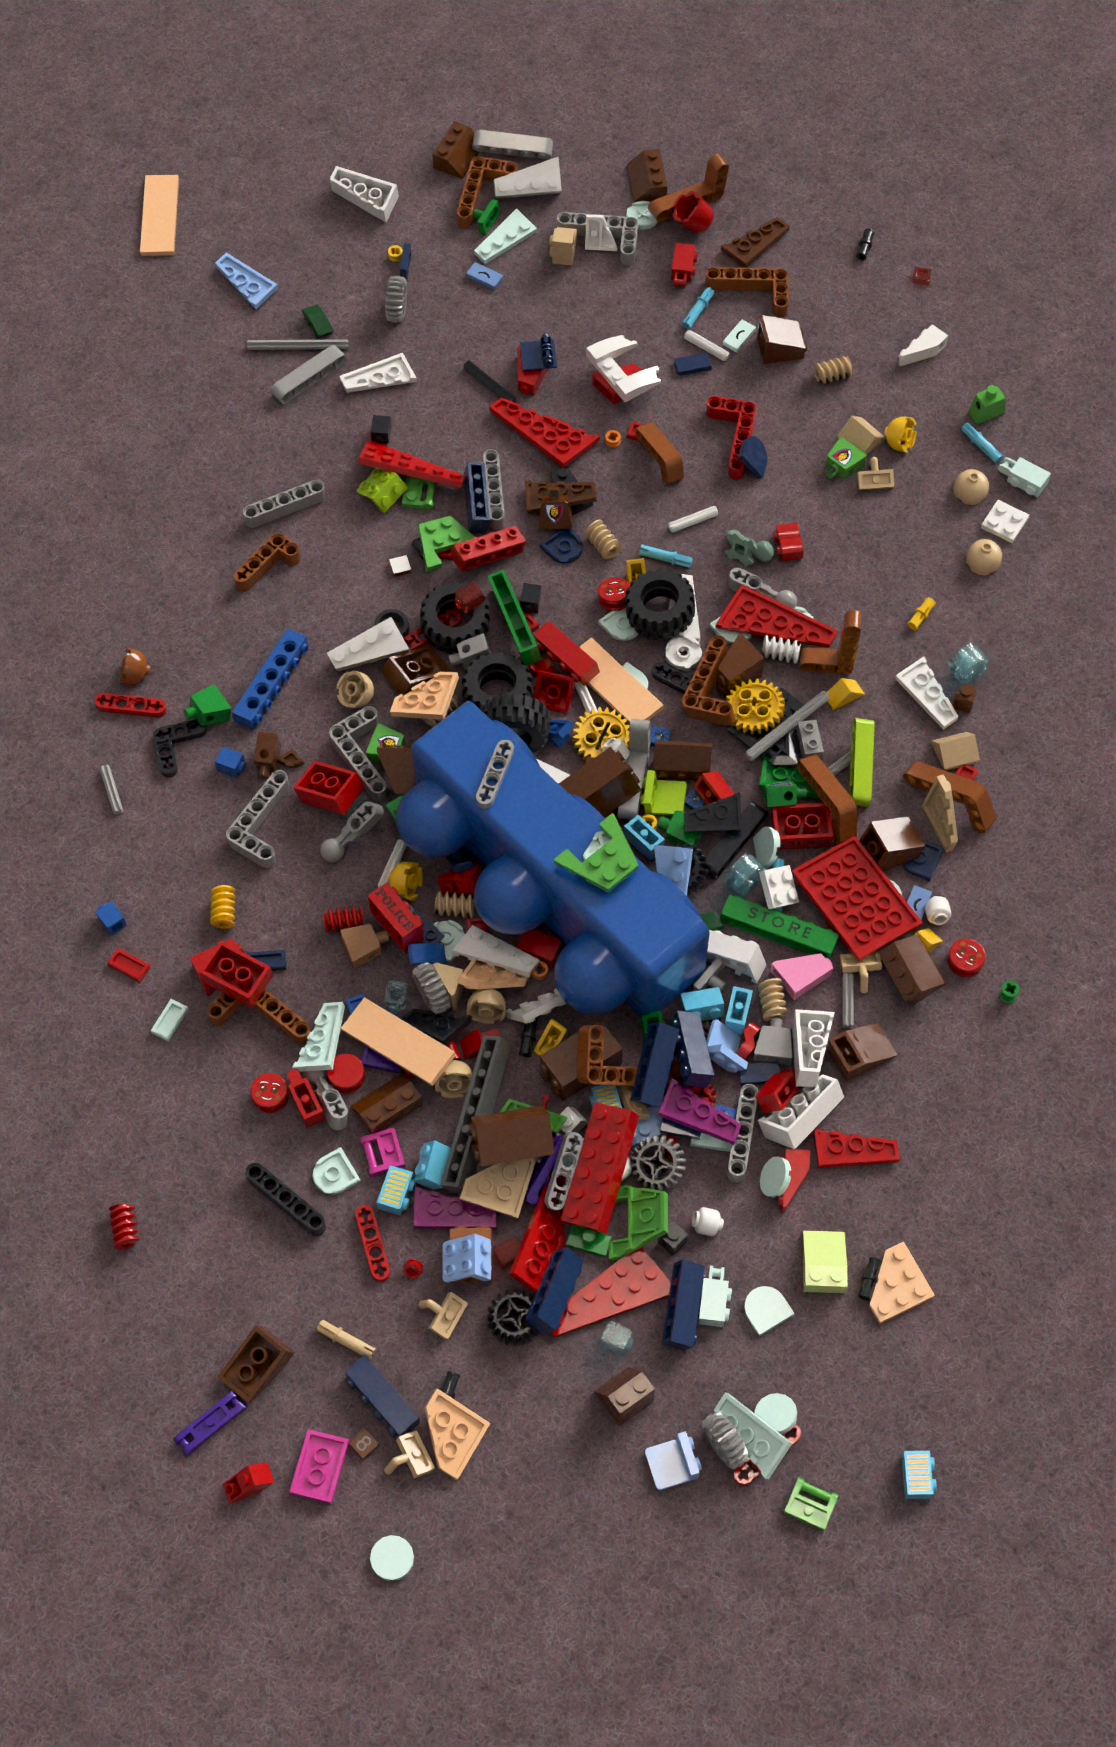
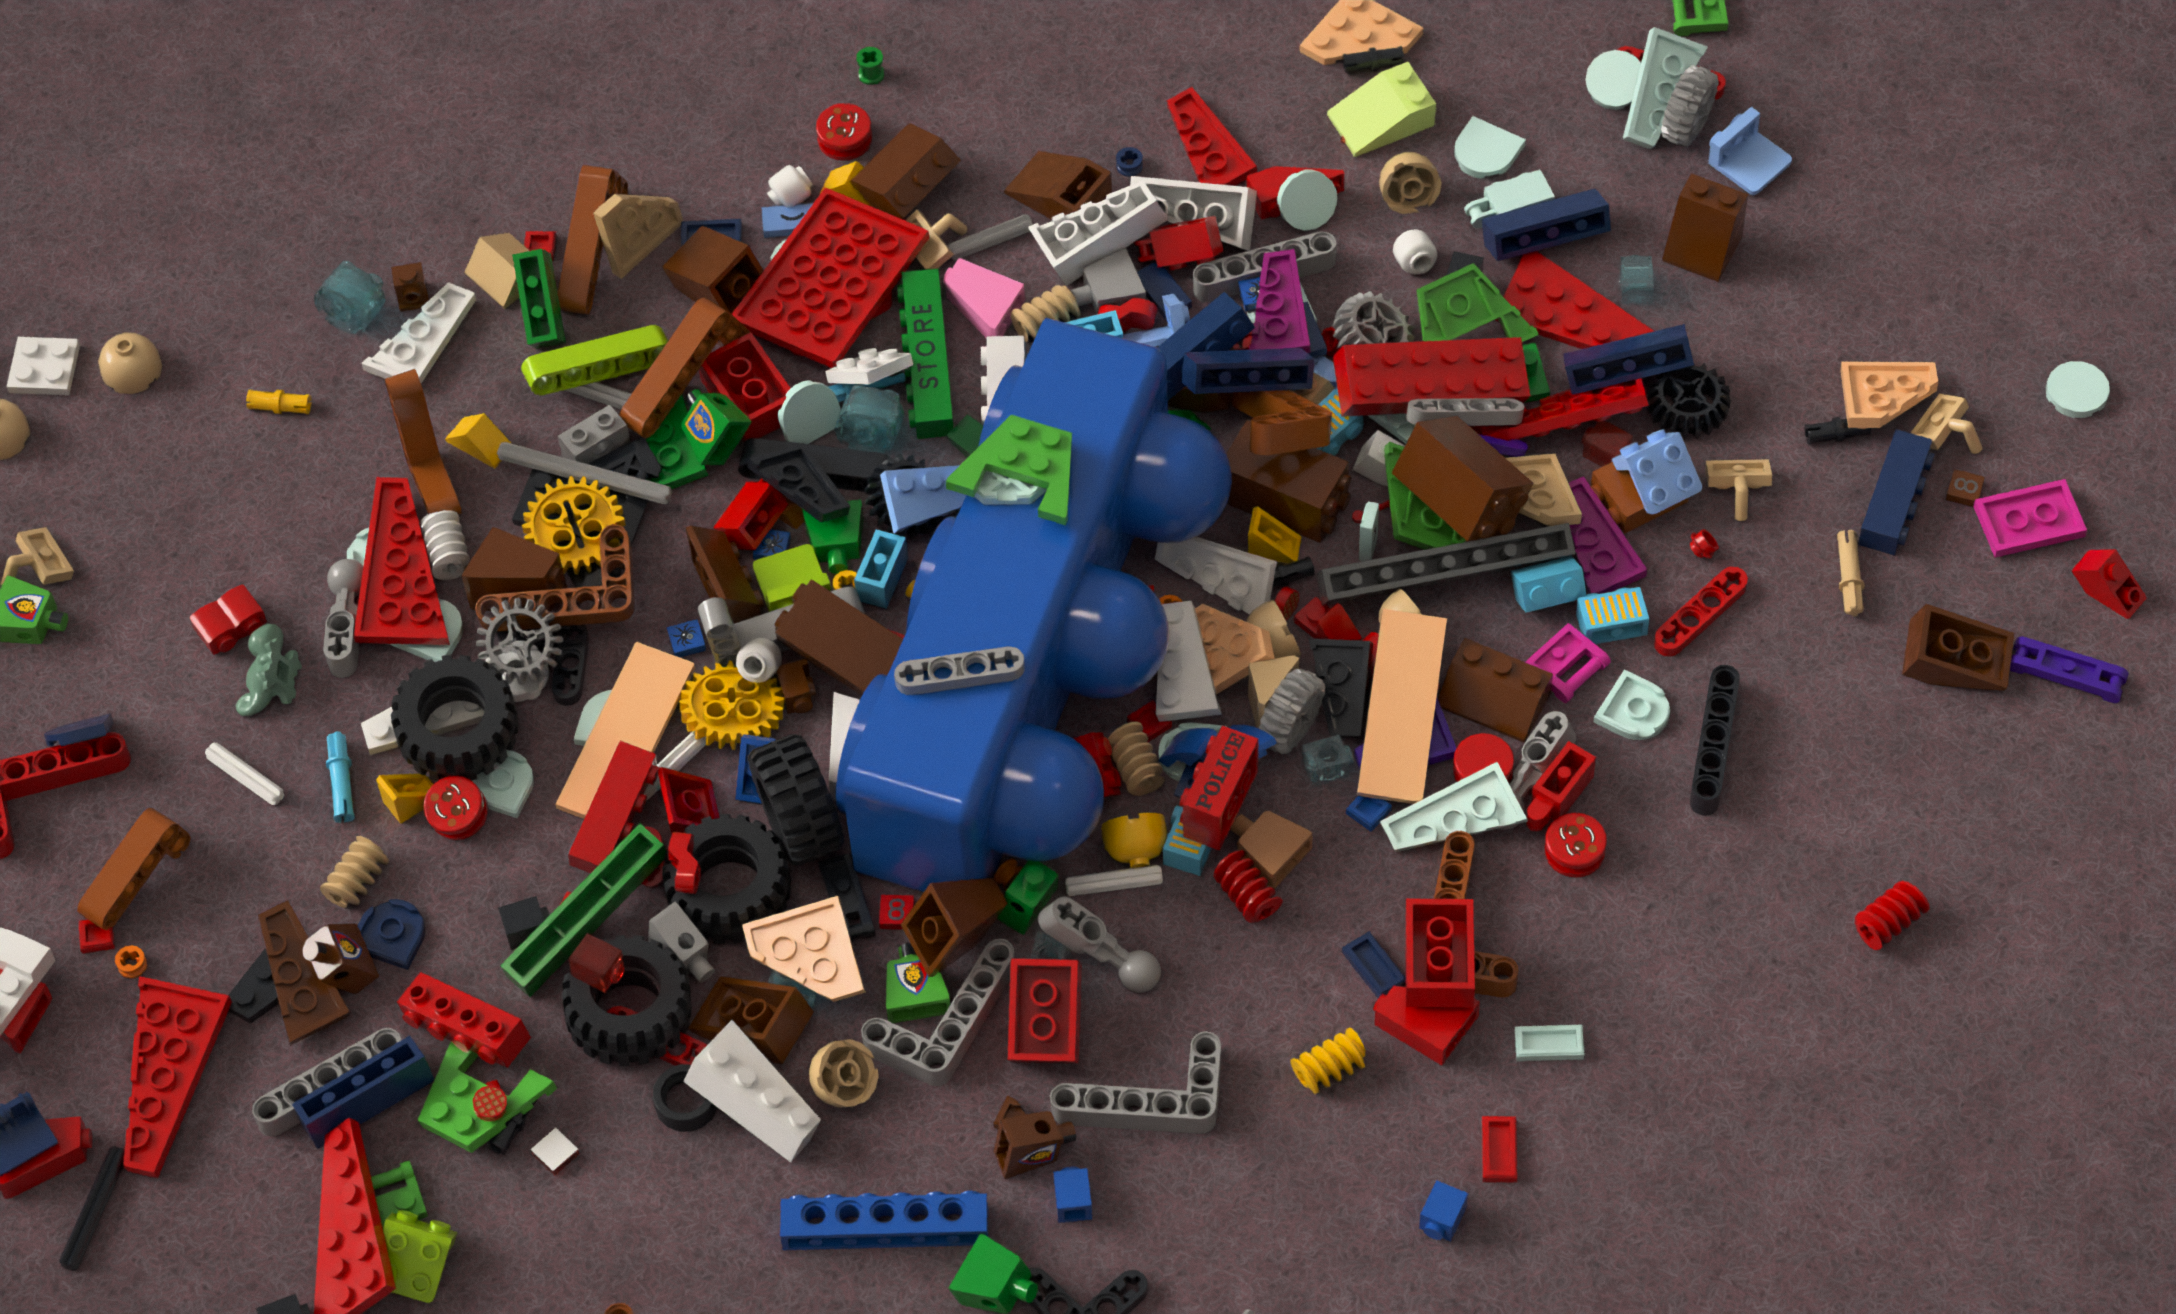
camera: 115 degrees left, 5 degrees down
(431, 536) = (489, 1103): none -> tile
(437, 923) = (1187, 747): none -> blue slope
(502, 658) = (680, 855): none -> red piece
(507, 1027) = (1287, 601): none -> red tile
(521, 1086) = (1368, 531): none -> light aqua tile
(688, 647) = (503, 647): none -> light grey gear
(760, 1243) = (1409, 177): none -> tan cylinder
(858, 1103) = (1137, 159): none -> dark blue bush
(915, 746) = (539, 298): none -> green brick

